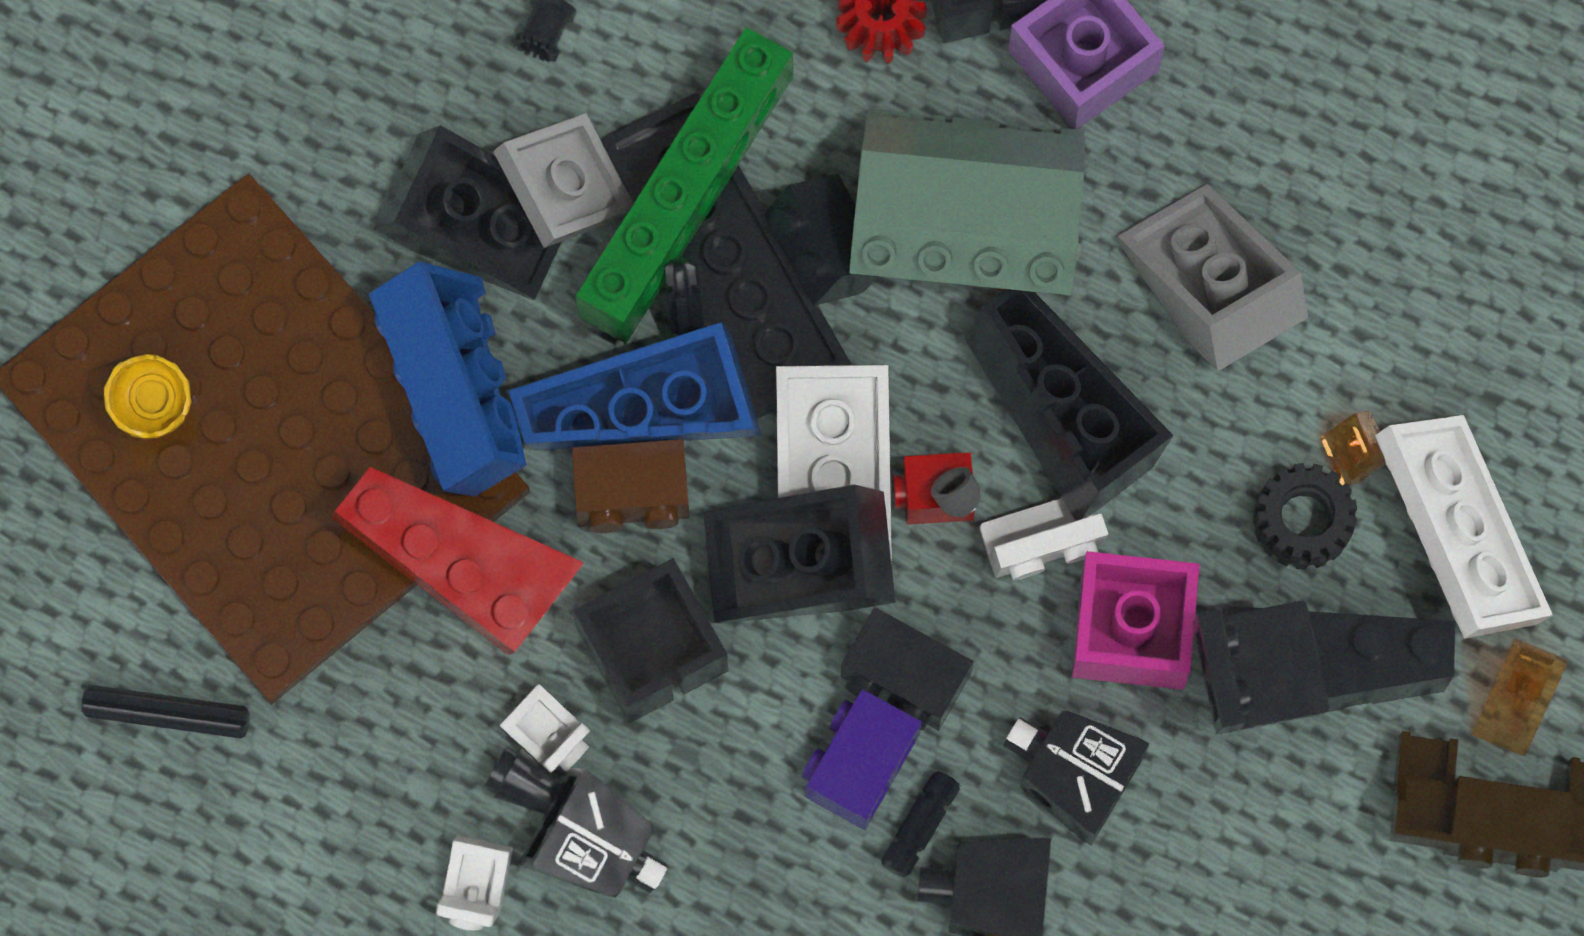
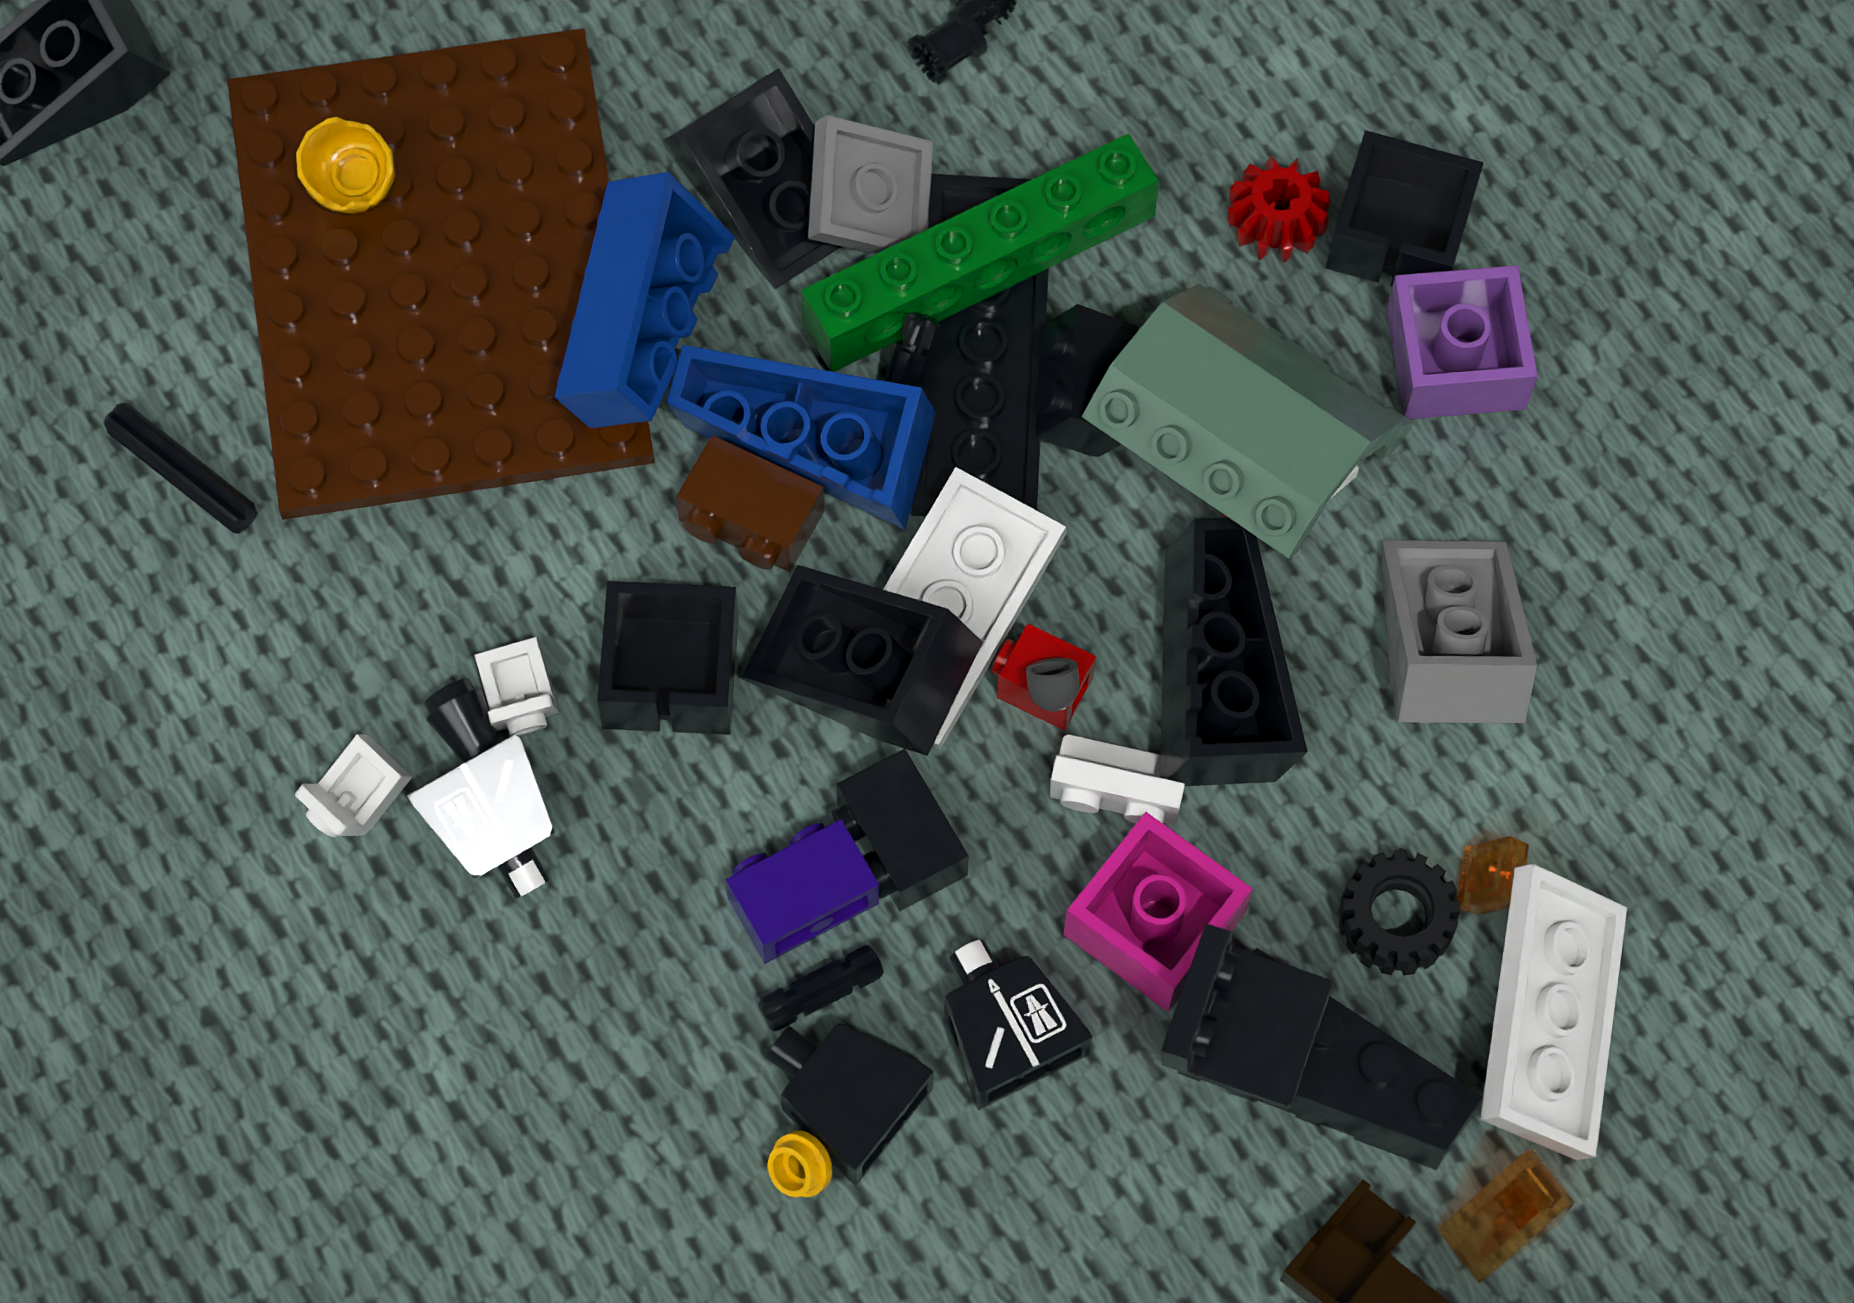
camera: 30 degrees right, 5 degrees down
(464, 561) = (543, 485): red wedge -> none

